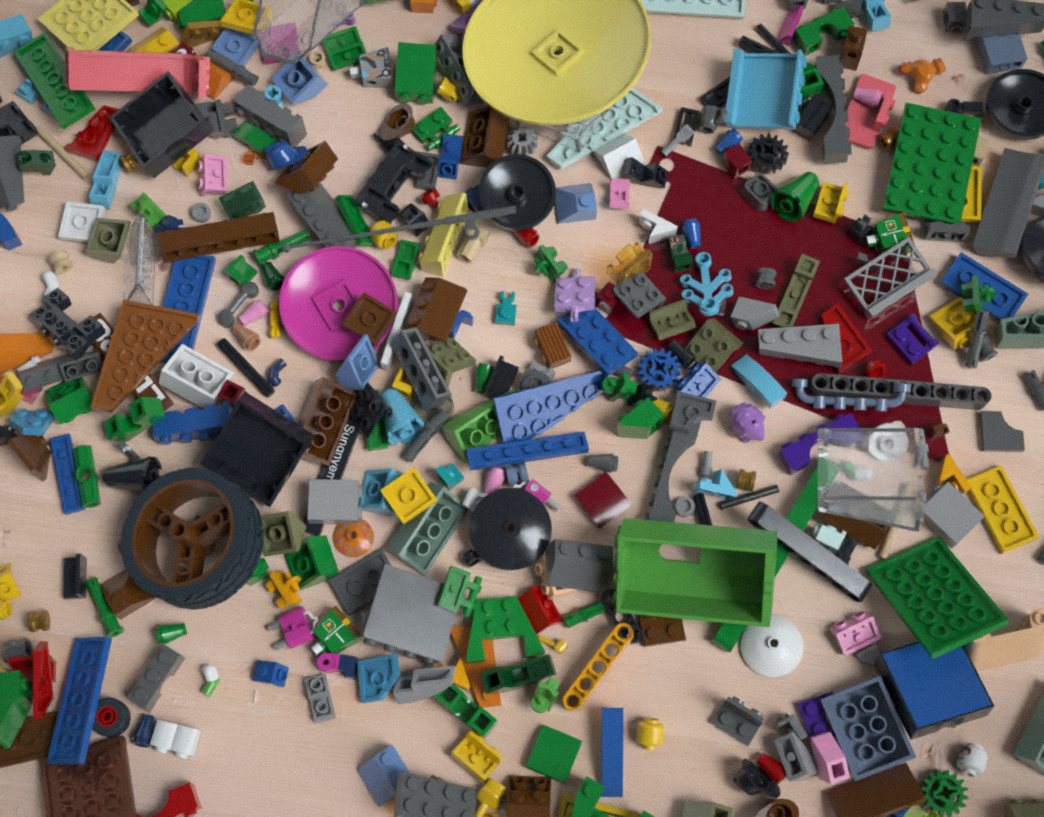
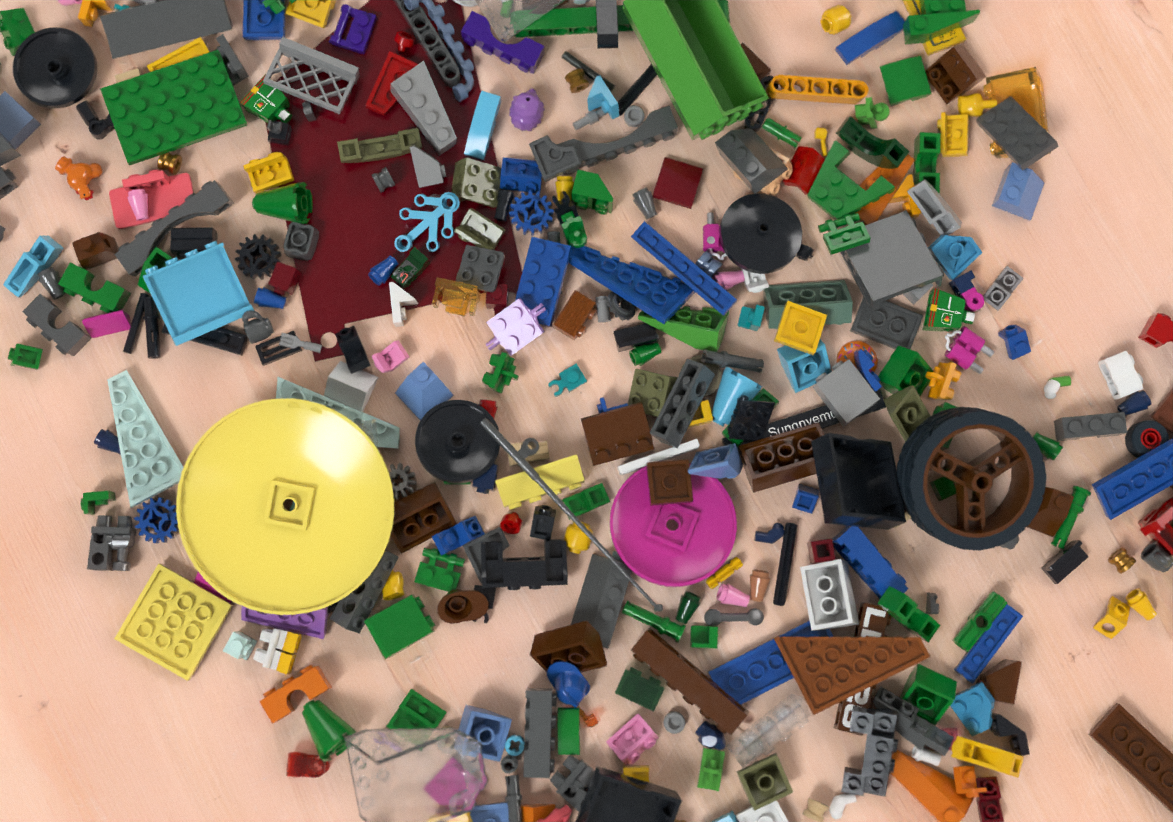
camera: 130 degrees left, 10 degrees up
(132, 475) = (951, 577): black cone -> none
(263, 80) = (506, 768): none -> dark grey pin
(343, 530) = (864, 362): none -> blue slope
(354, 219) = (582, 574): green tile -> none
(374, 69) = (419, 672): light grey torso -> none

